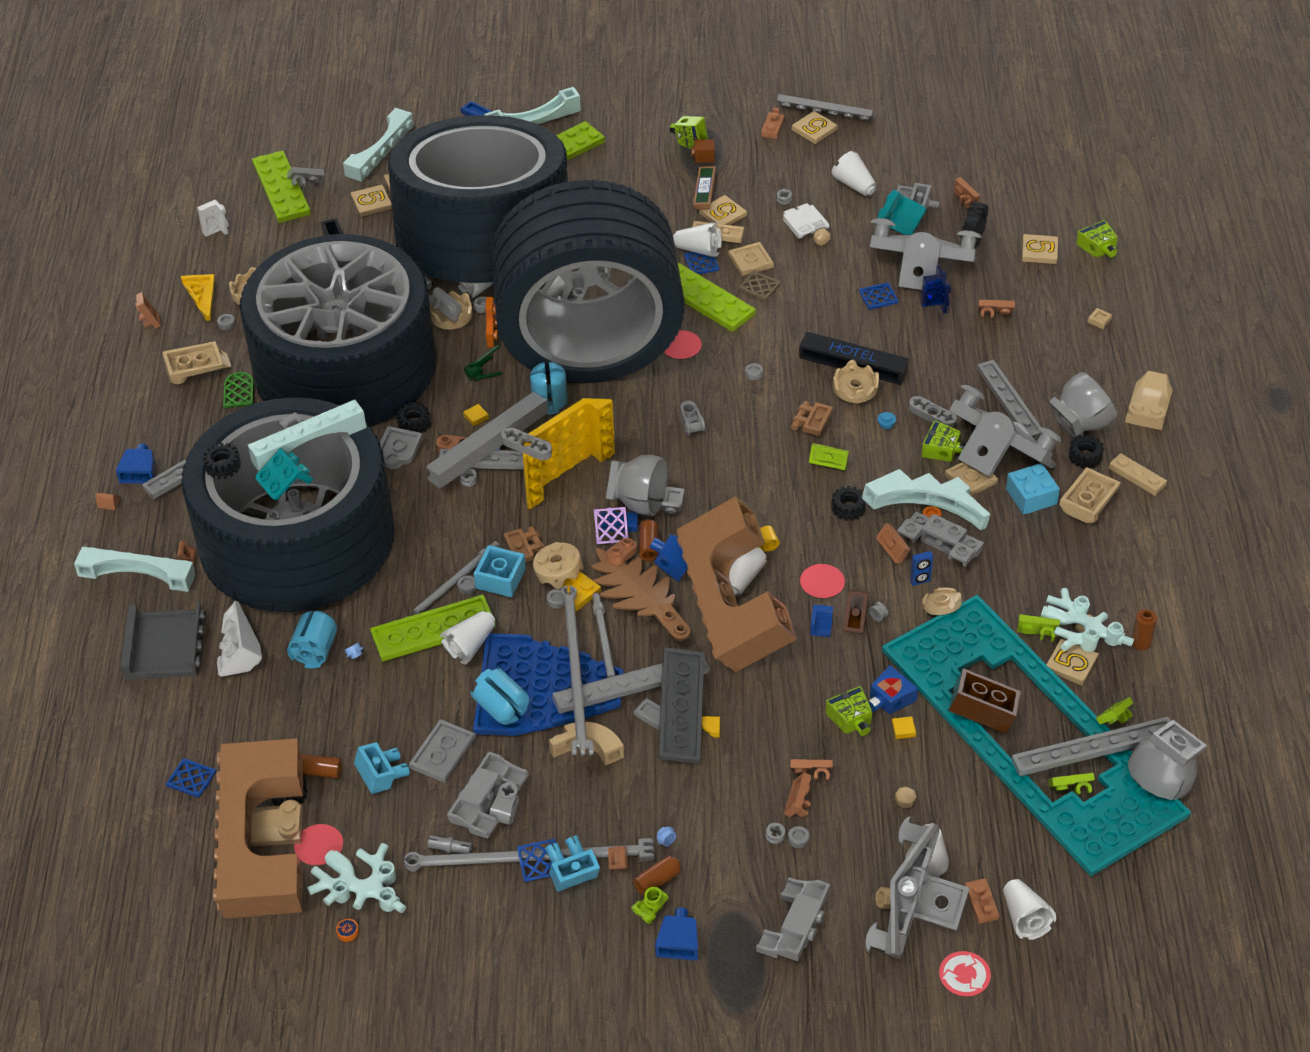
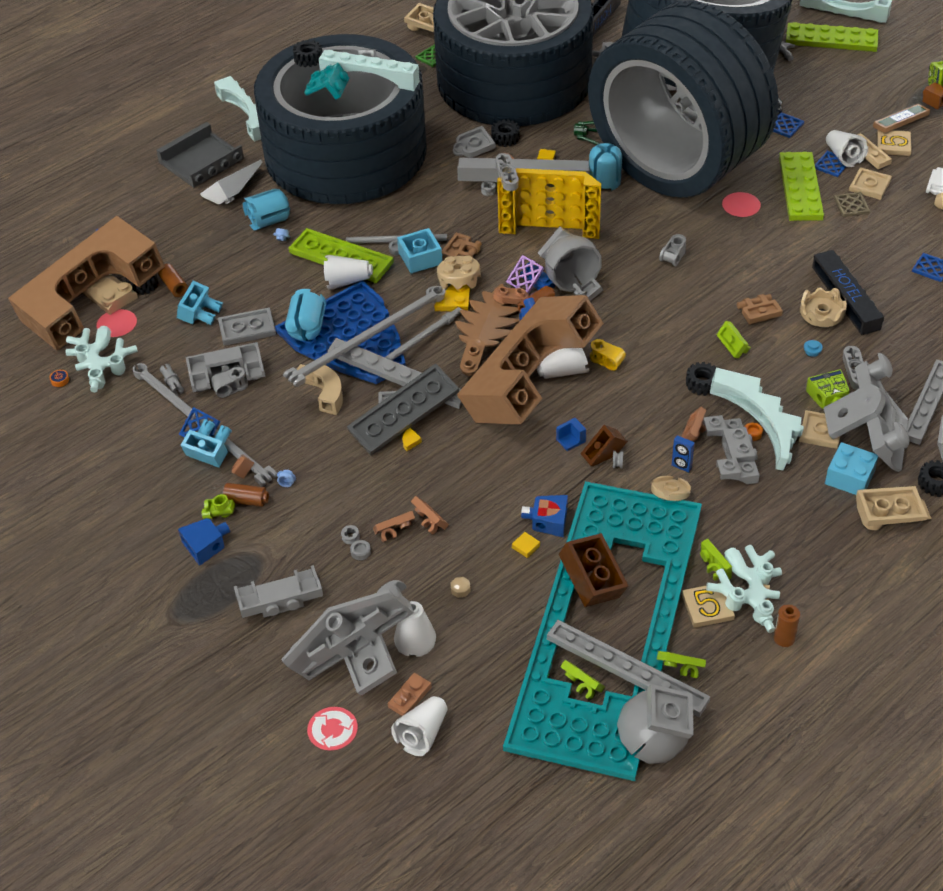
camera: 50 degrees right, 0 degrees up
(754, 371) = (764, 253): light grey tile -> none
(822, 581) = (615, 413): coral sticker -> none
(850, 711) = (504, 504): lime torso -> none

